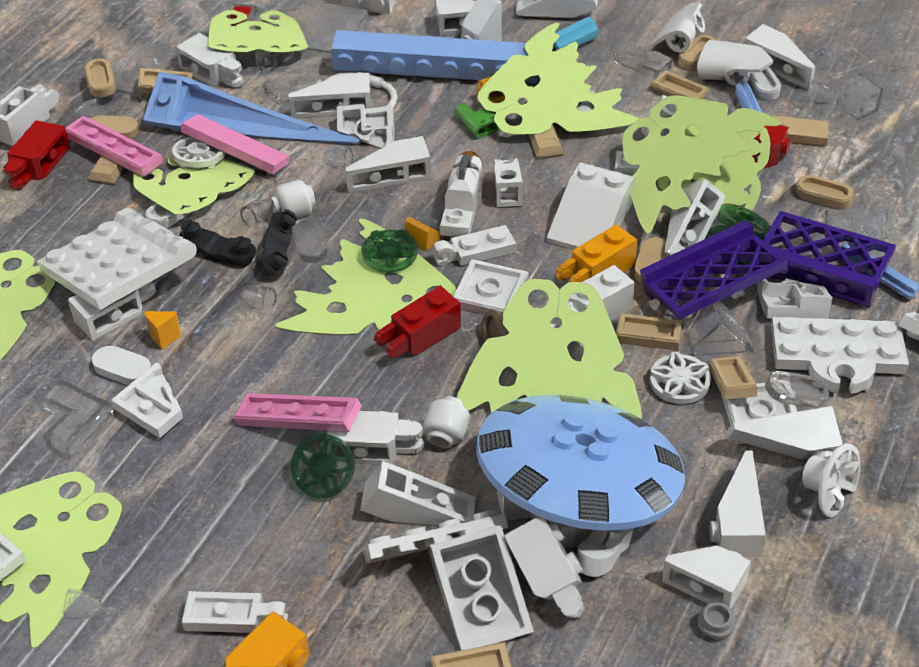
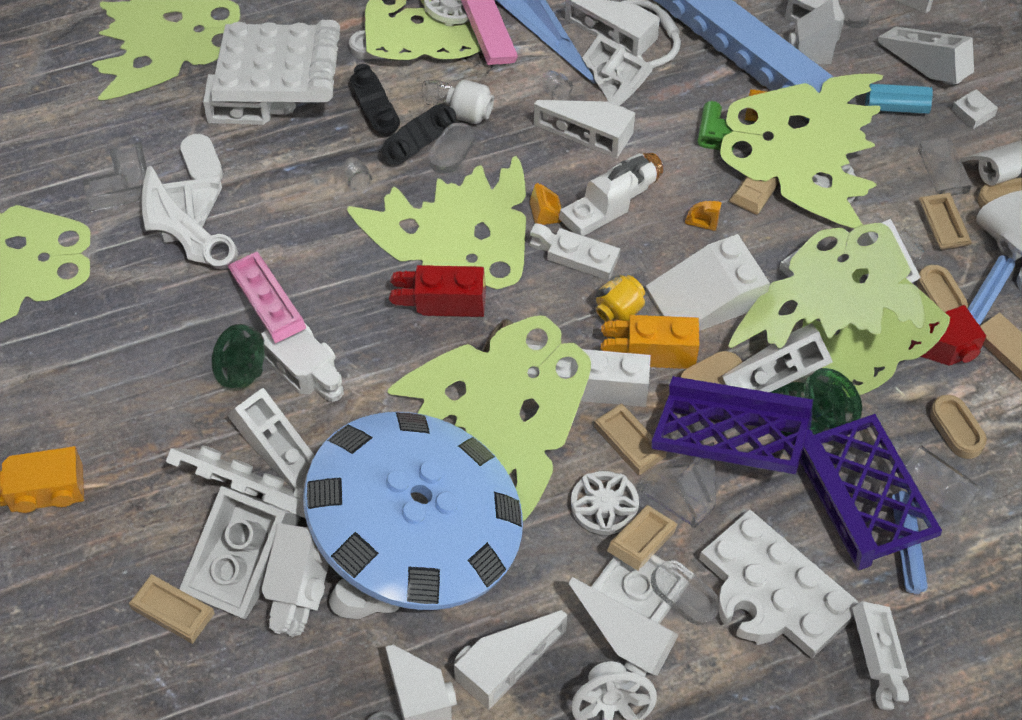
camera: 40 degrees right, 10 degrees up
(147, 411) = (165, 215): none -> white piece
(163, 327) = (257, 149): light orange slope -> none
(227, 611) = (60, 423): white plate -> none
(389, 250) = (501, 203): clear green wheel -> none
(446, 422) = (369, 391): white head -> none
(488, 286) = (545, 293): white tile -> none
(508, 183) = (668, 207): white leg -> none
(536, 171) = (704, 215): none -> light orange tile
(545, 250) = (620, 298): none -> yellow head
(620, 18) = (974, 109): none -> white plate
(794, 299) = (791, 509): white slope -> none

